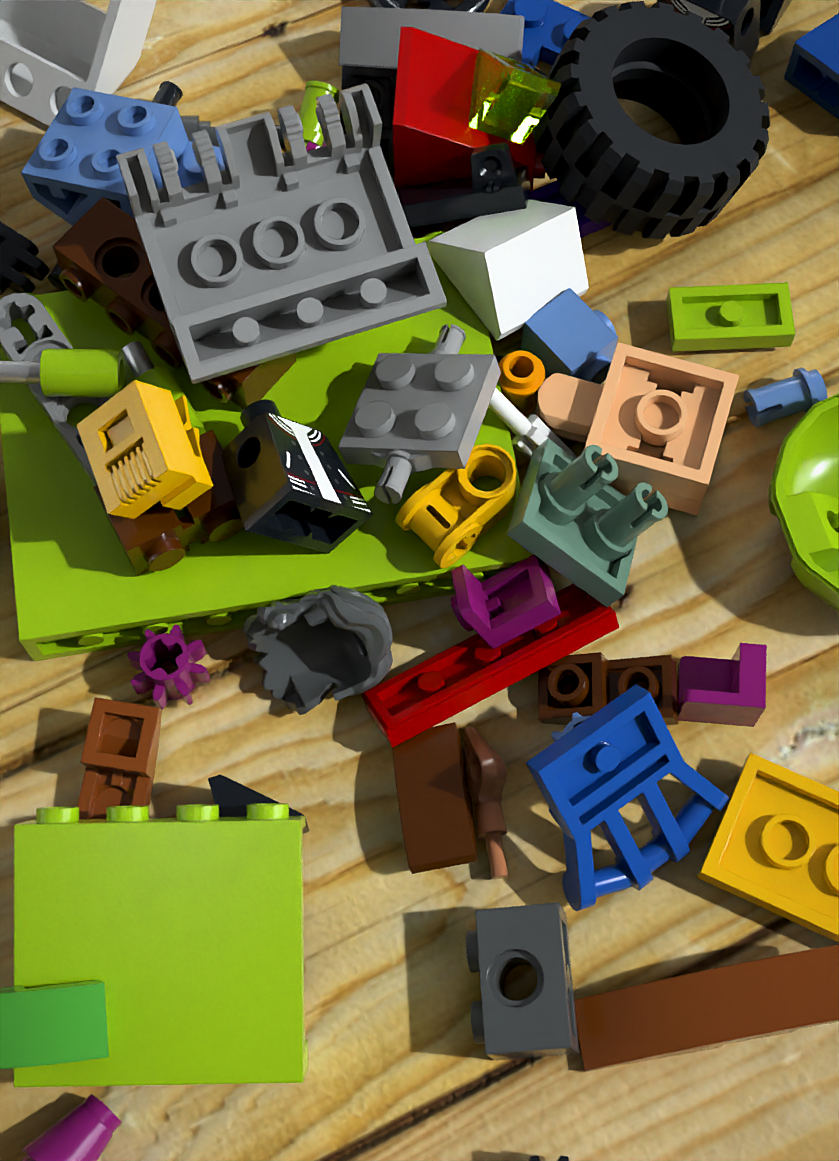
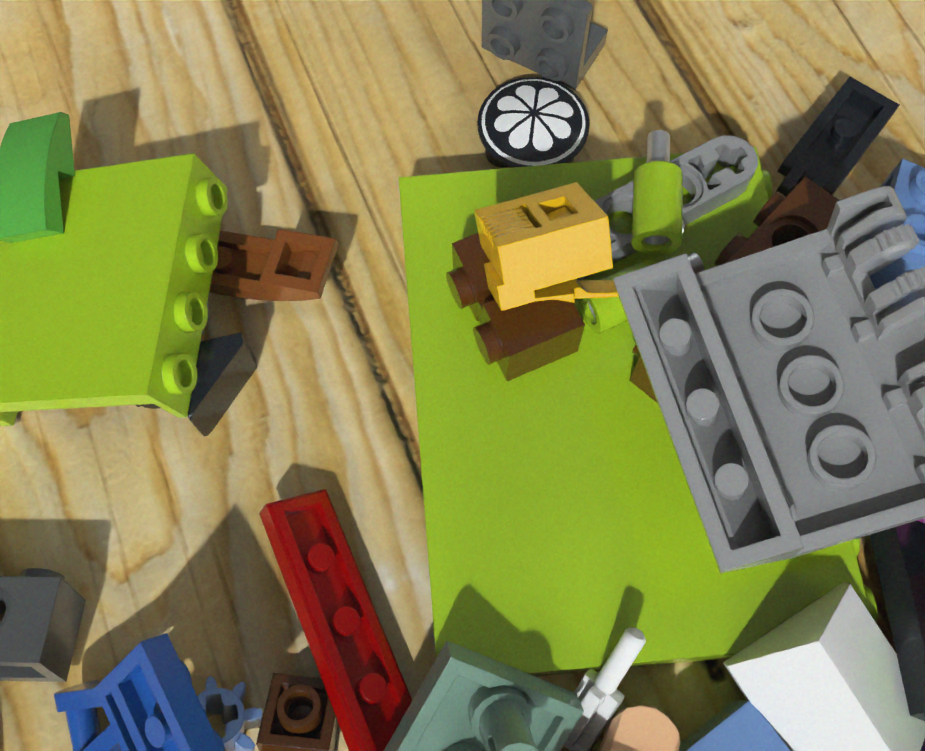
camera: 95 degrees right, 0 degrees up
(161, 649) = (366, 293): magenta gear -> none
(291, 481) = (524, 401): black torso -> none
(319, 645) = (372, 449): dark grey hair -> none
(420, 412) = (610, 555): light grey plate -> none
(434, 800) = (198, 549): reddish brown slope -> none
(454, 513) = (485, 583): yellow piece -> none
(486, 782) = (209, 610): nougat hand -> none
(505, 602) = (391, 639): magenta bracket -> none
(521, 379) = (689, 681): light orange pin -> none

